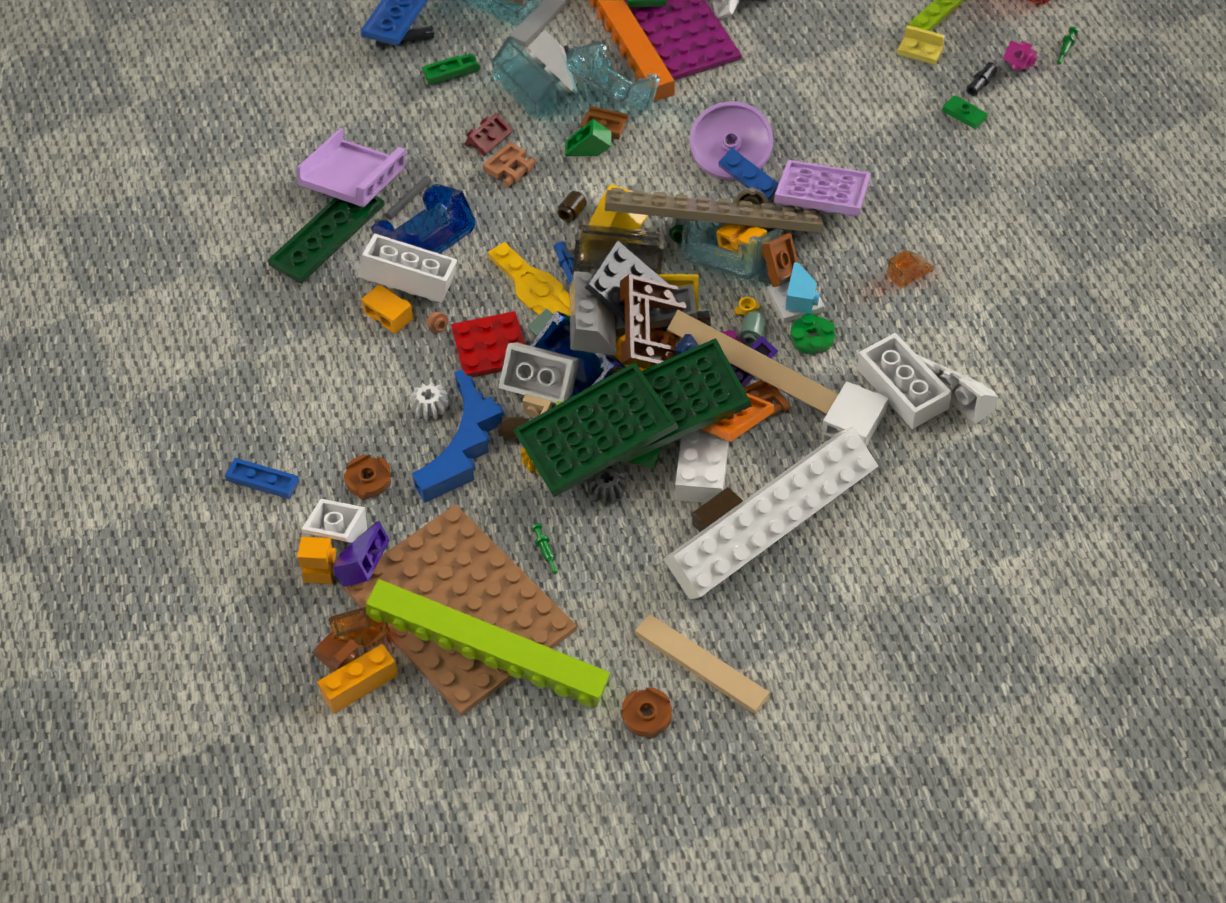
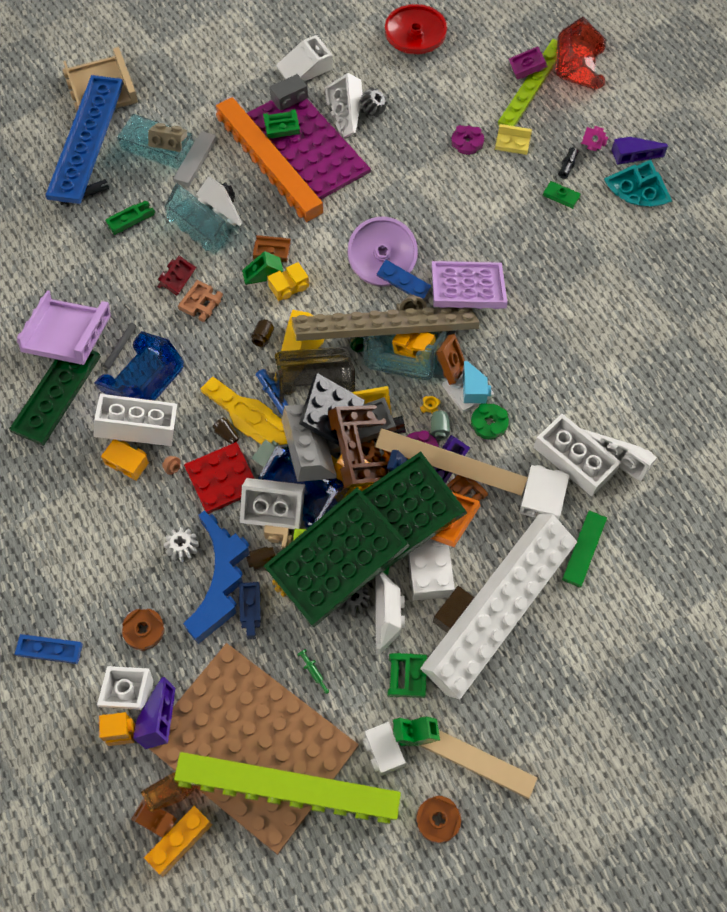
camera: 15 degrees left, 10 degrees up
(490, 475) = (250, 607): none -> dark blue hinge
(505, 297) = (225, 430): none -> dark brown cone
(593, 67) = (252, 202): clear light blue windscreen -> none
(604, 634) = (384, 749): none -> white brick
(615, 159) = (288, 282): none -> yellow brick
(641, 620) = (416, 731): none -> green brick
(642, 504) = (388, 612): none -> white wedge
(656, 571) = (414, 677): none -> green plate
(875, 35) = (459, 139): none -> magenta plate
(888, 480) = (584, 549): none -> green tile
(907, 268) = (552, 347): clear orange slope -> none
(1061, 113) = (639, 185): none -> teal brick
(1067, 74) = (636, 149): none -> dark purple slope
(1068, 41) = (627, 118): green piece -> none

